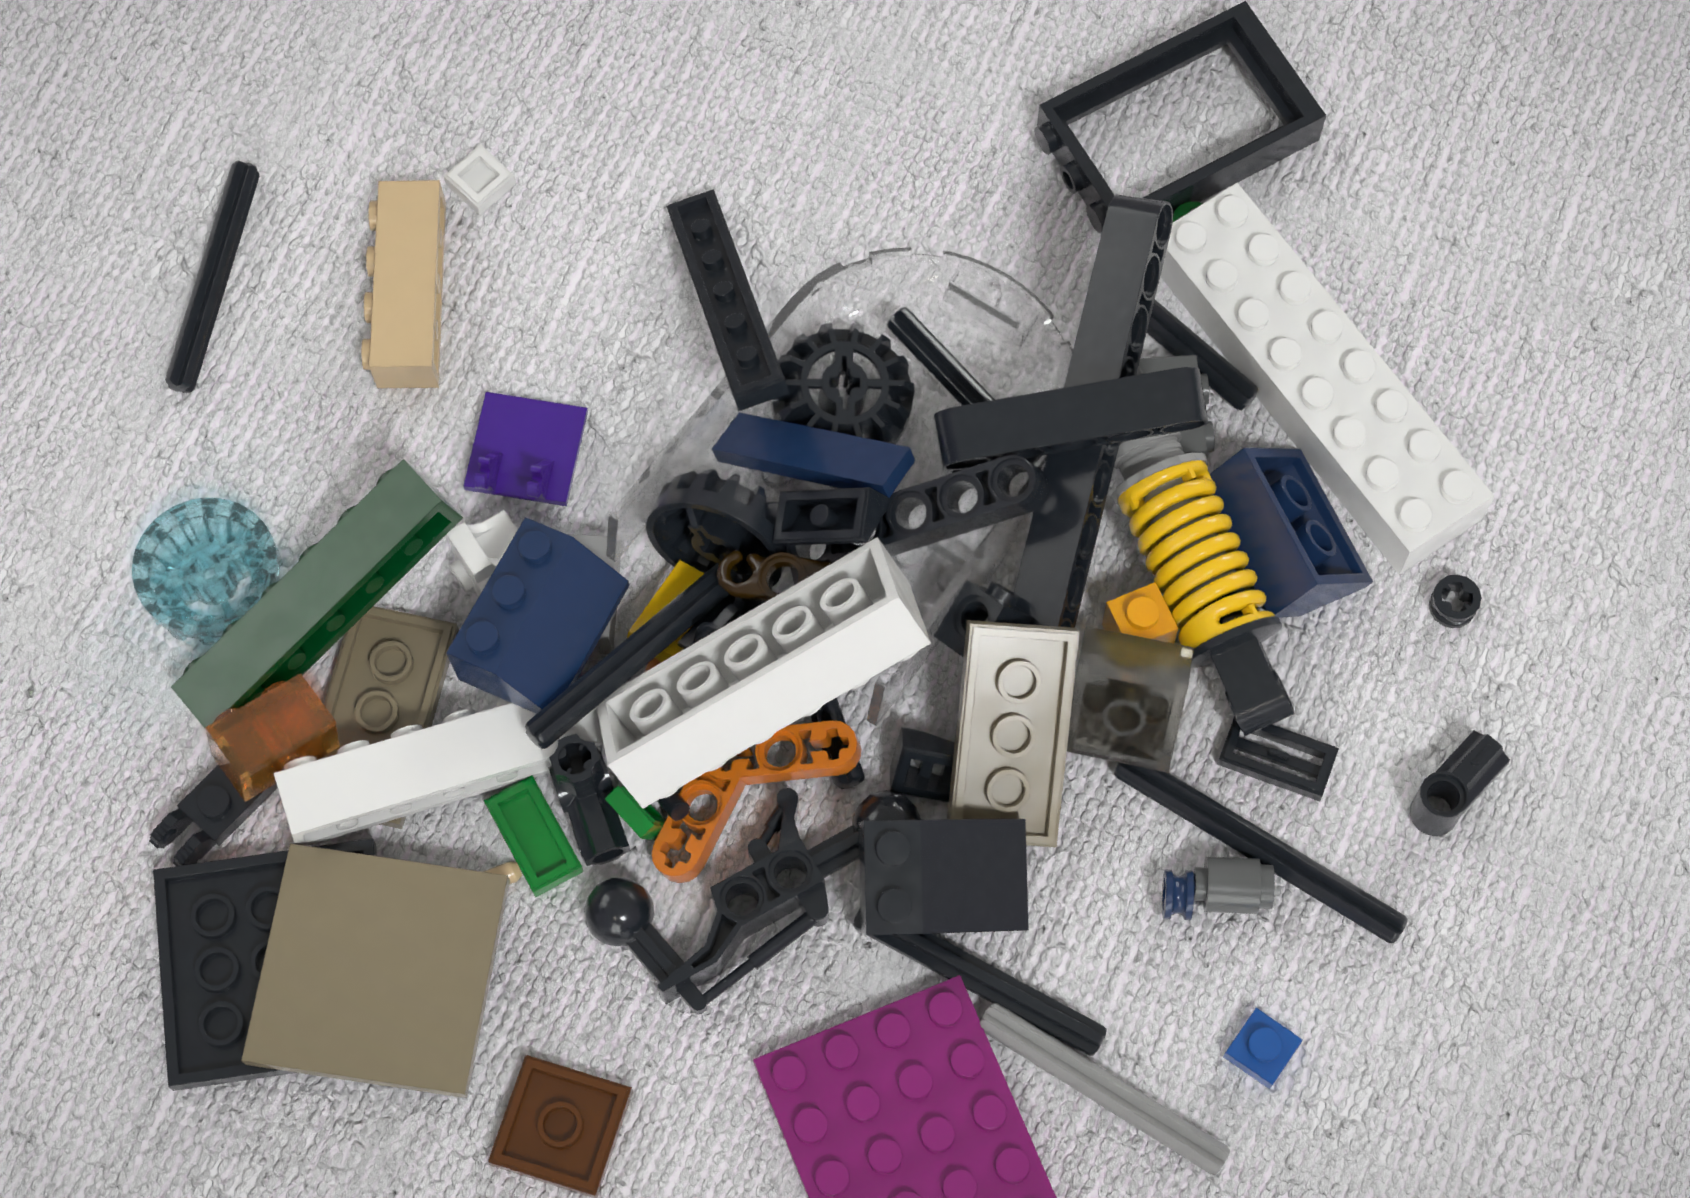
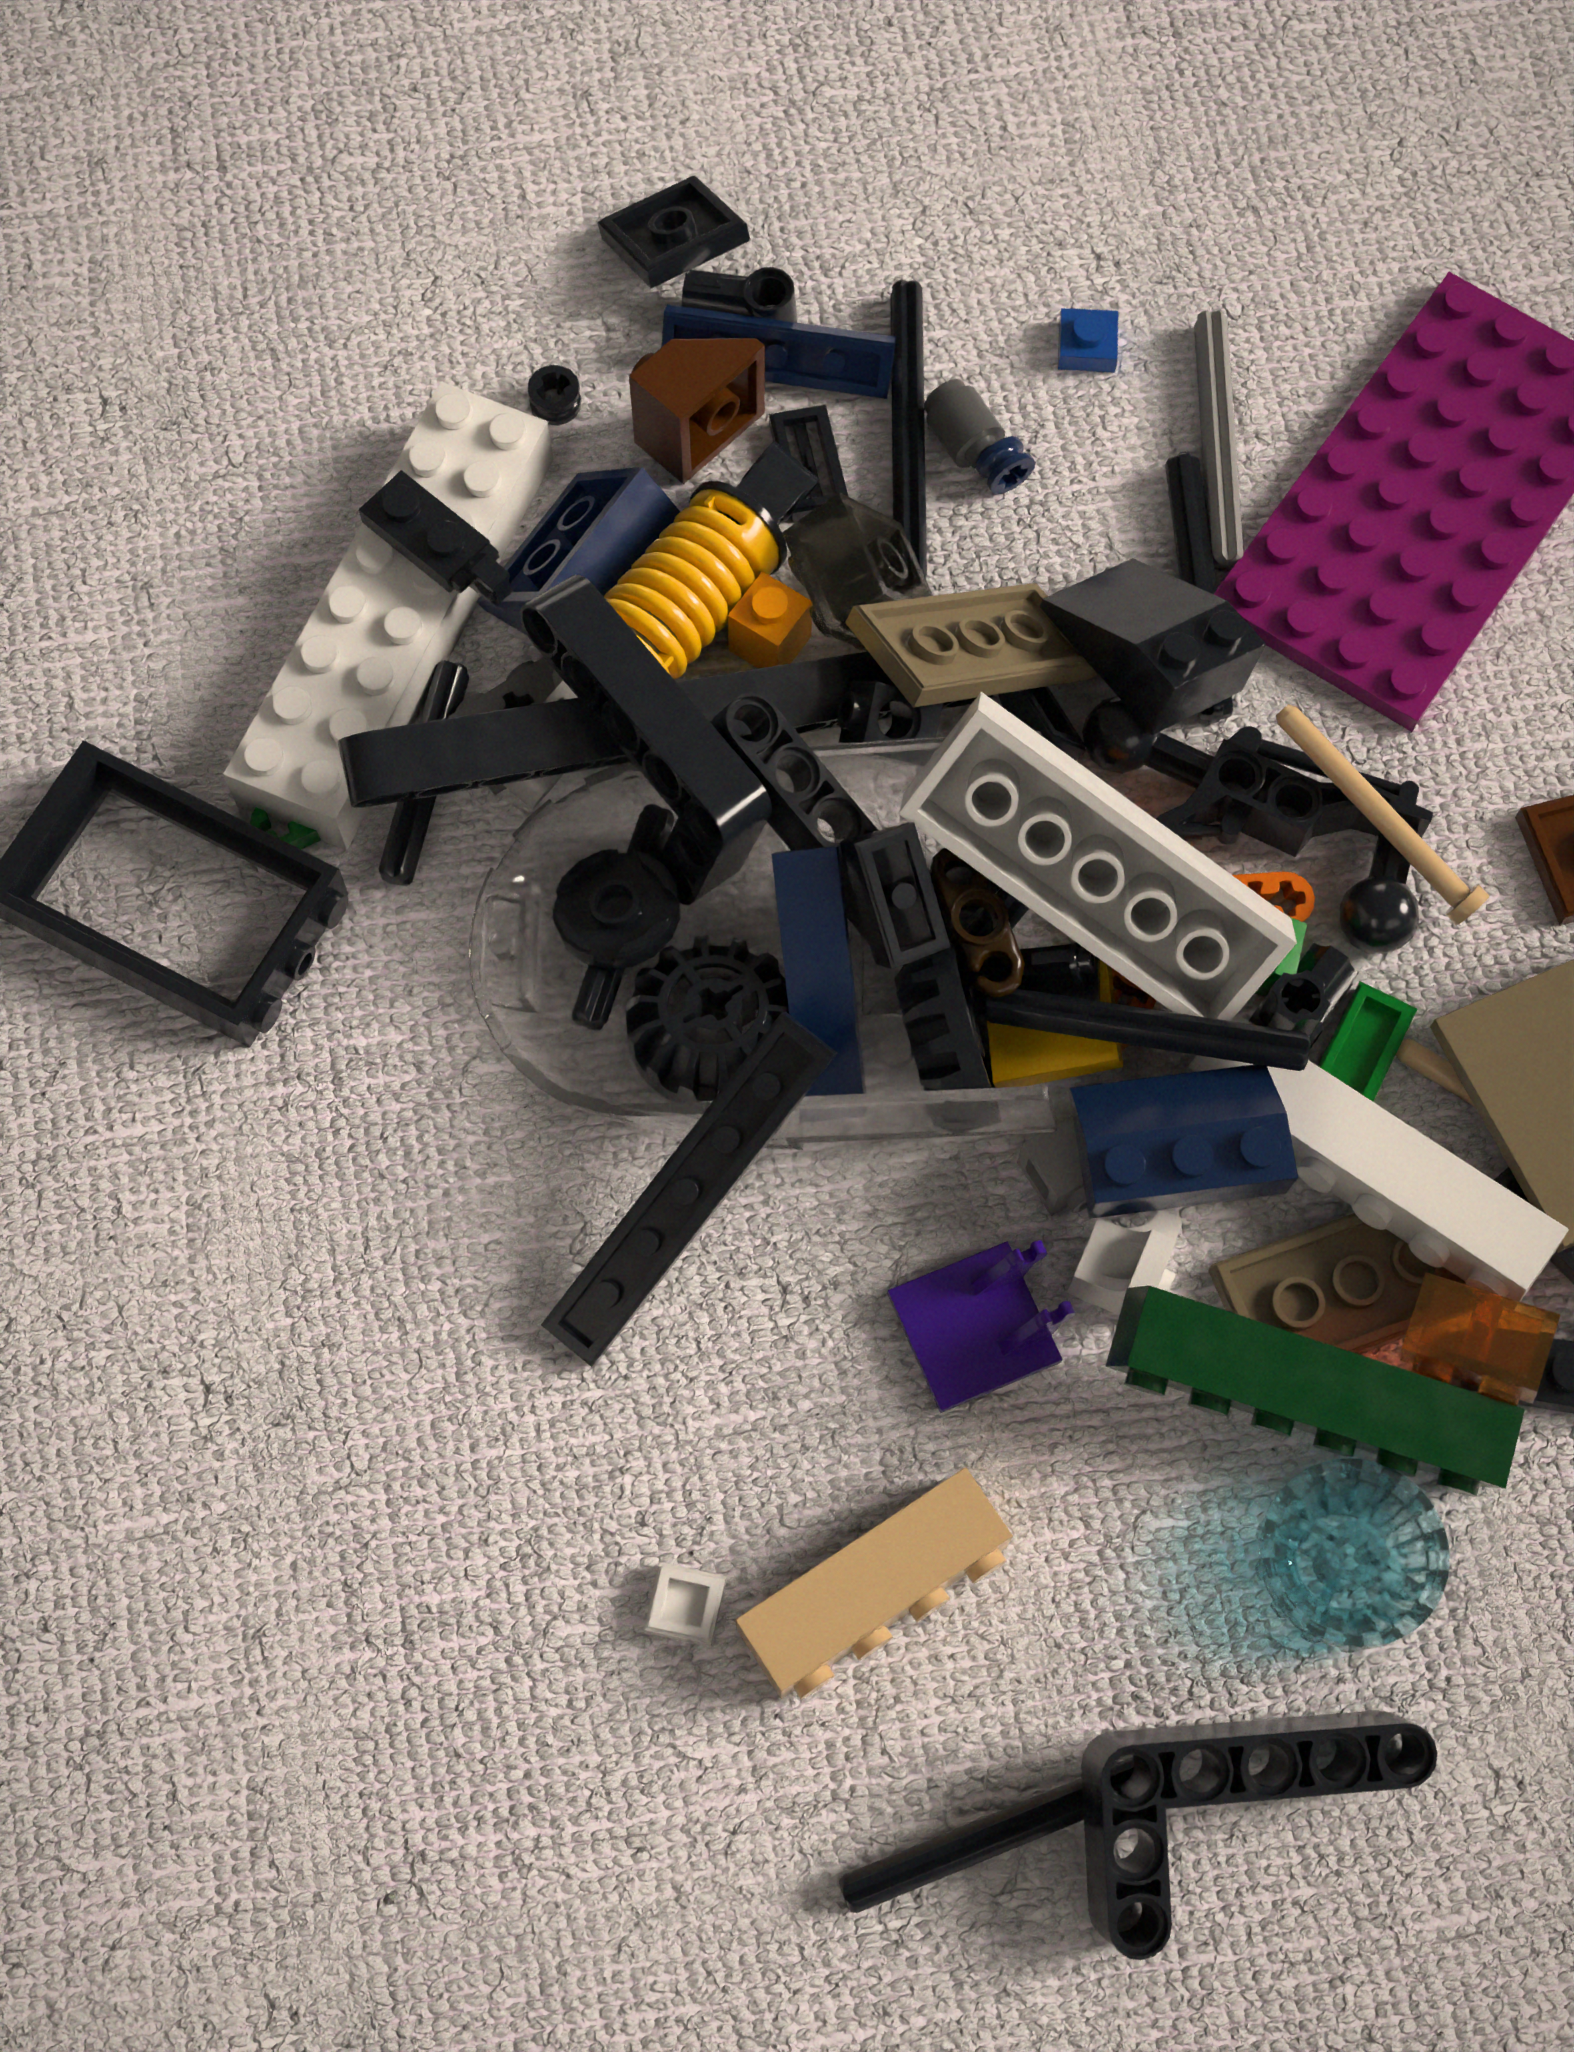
camera: 125 degrees left, 0 degrees up
(140, 409) = (1222, 1779): none -> black beam
(585, 973) = (1382, 815): none -> tan bar
(962, 366) = (616, 908): none -> black tile
(1339, 404) = (436, 539): none -> black hinge
(1364, 668) = (696, 399): none -> reddish brown slope
(1390, 783) = (797, 351): none -> dark blue tile
(1558, 771) = (673, 231): none -> black tile

